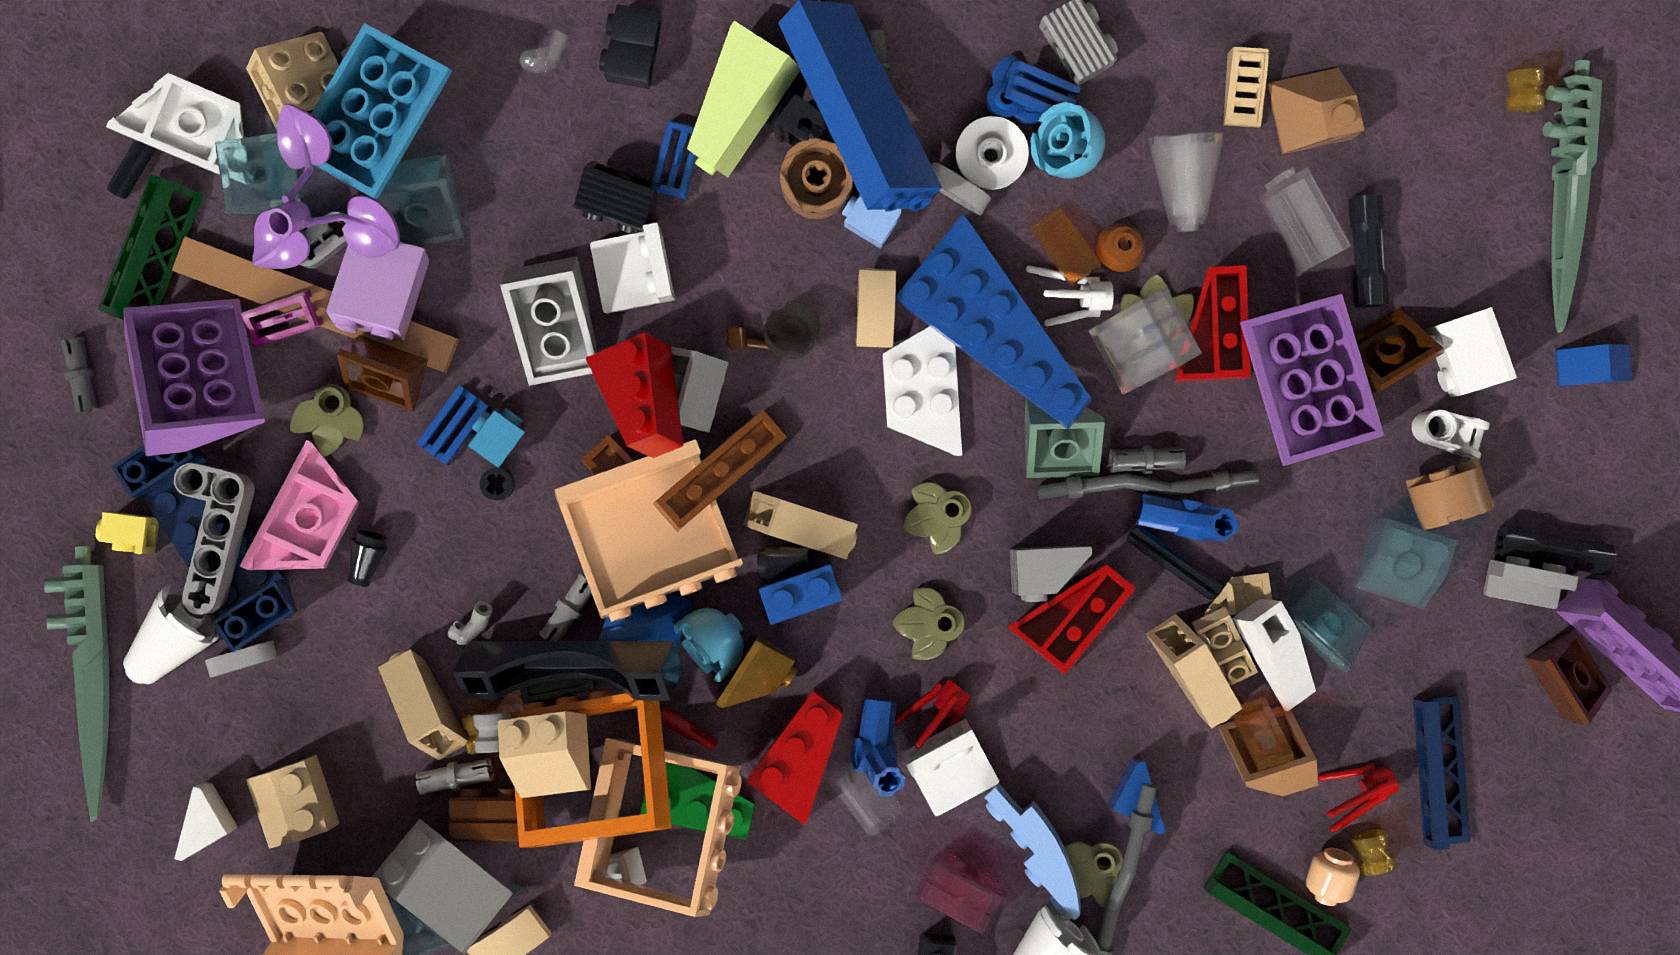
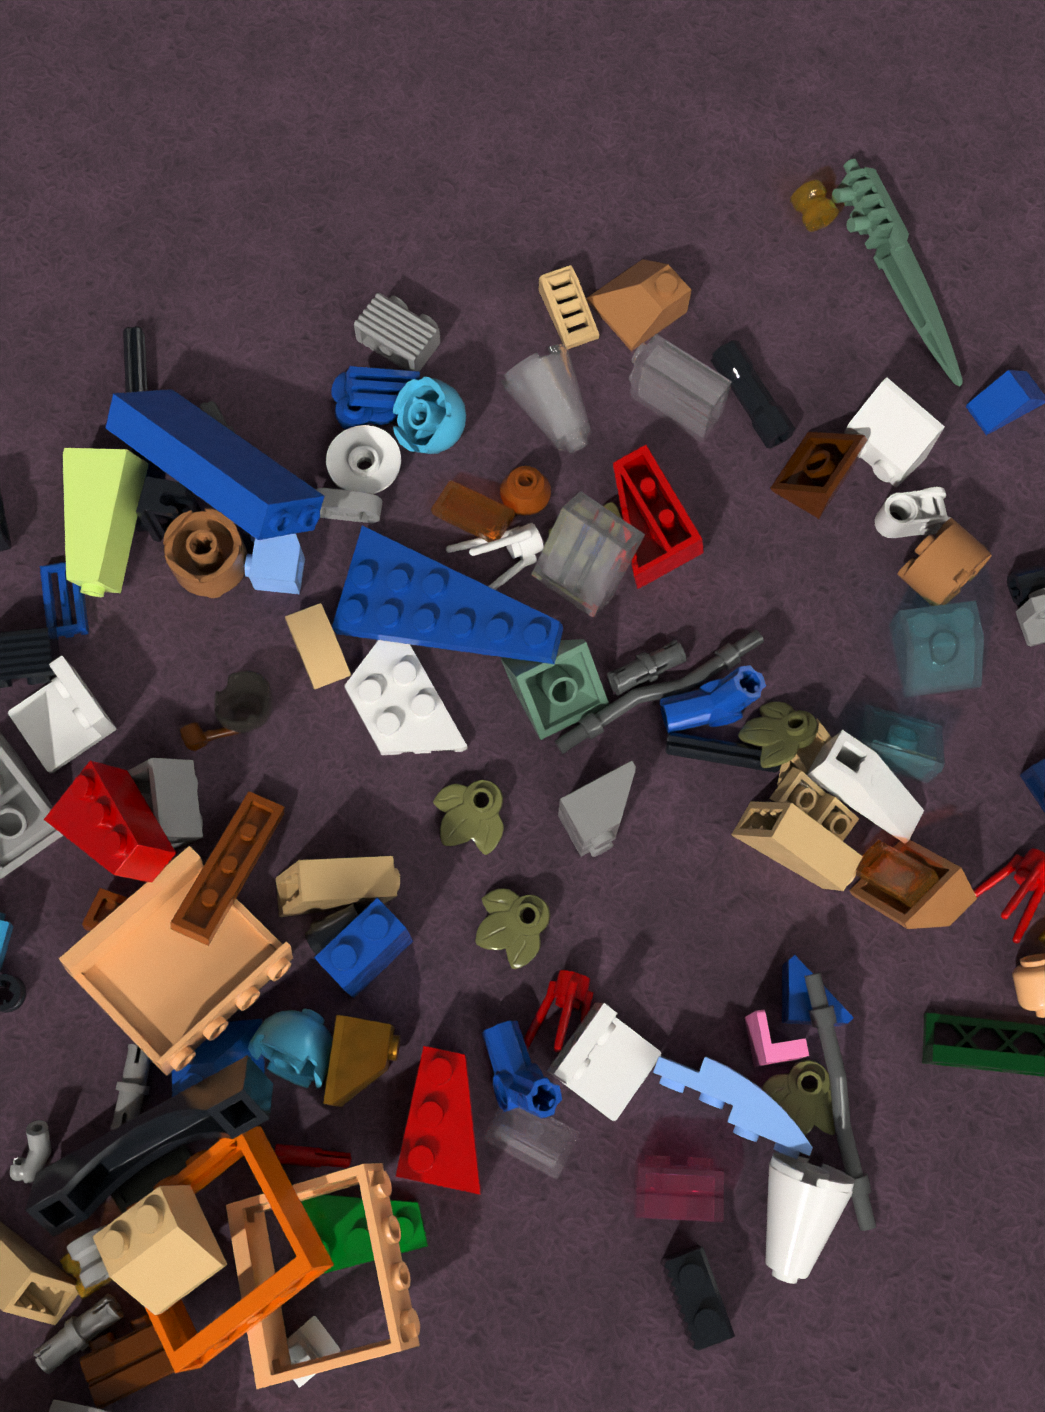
camera: 25 degrees left, 15 degrees down
(1073, 619) = (651, 853): red wedge -> none
(1084, 826) = (763, 1050): none -> bright pink panel
(1224, 569) = (778, 732): none -> olive plate
(1312, 379) = (762, 518): medium lavender slope -> none

